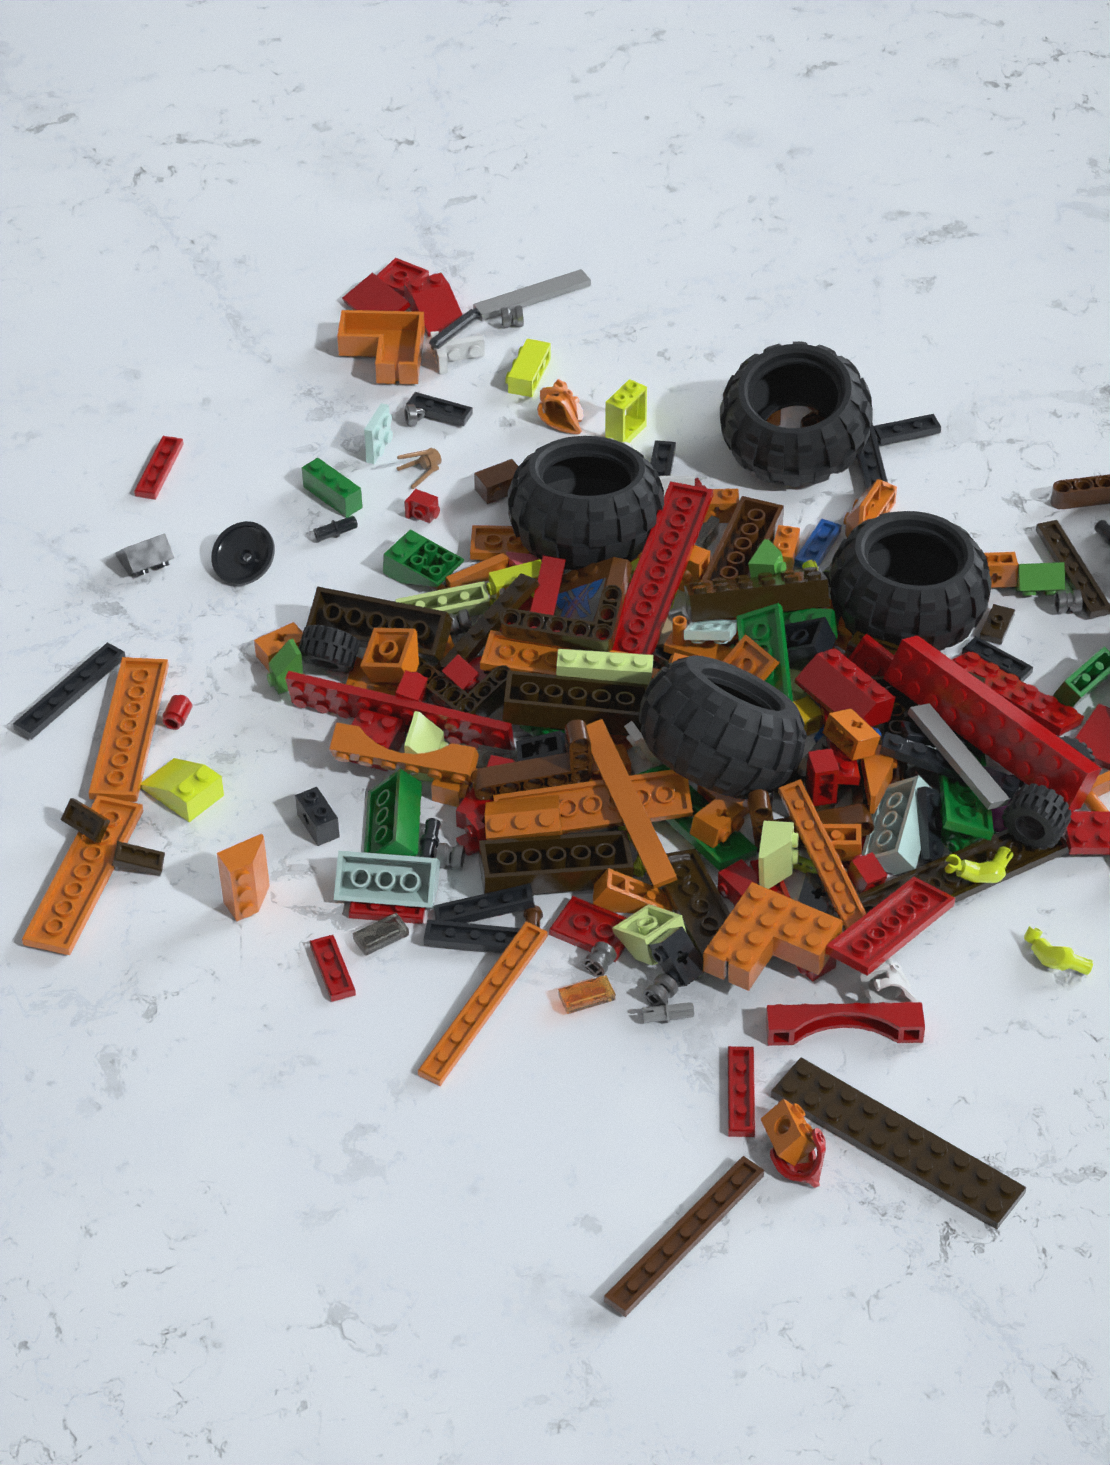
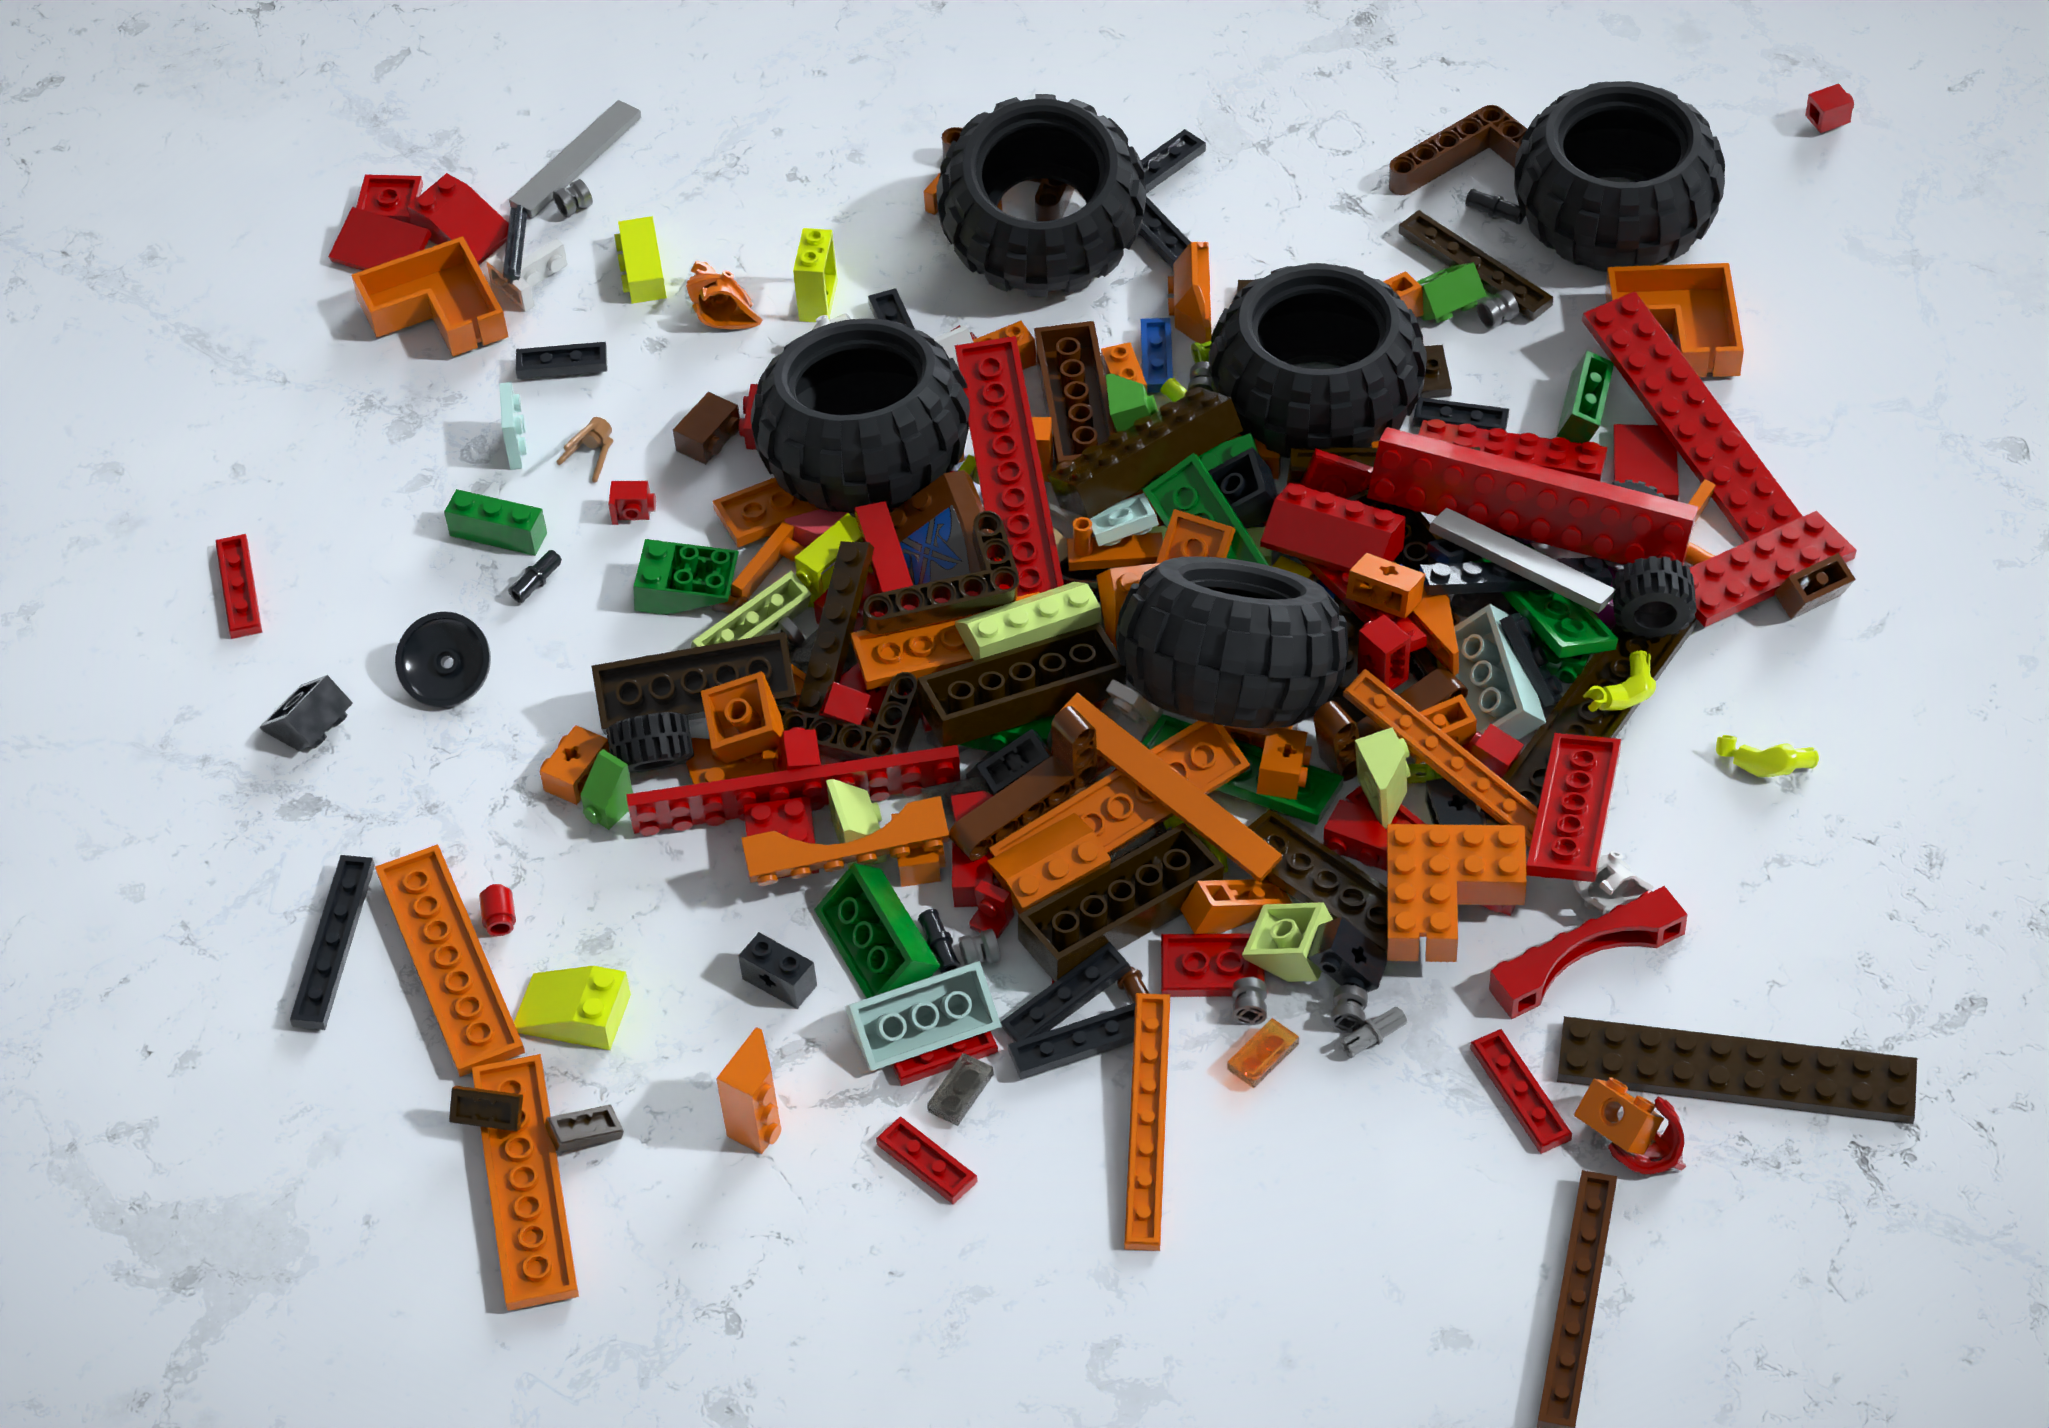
camera: 25 degrees left, 5 degrees up
(411, 414) = (532, 381): flat silver tile -> none

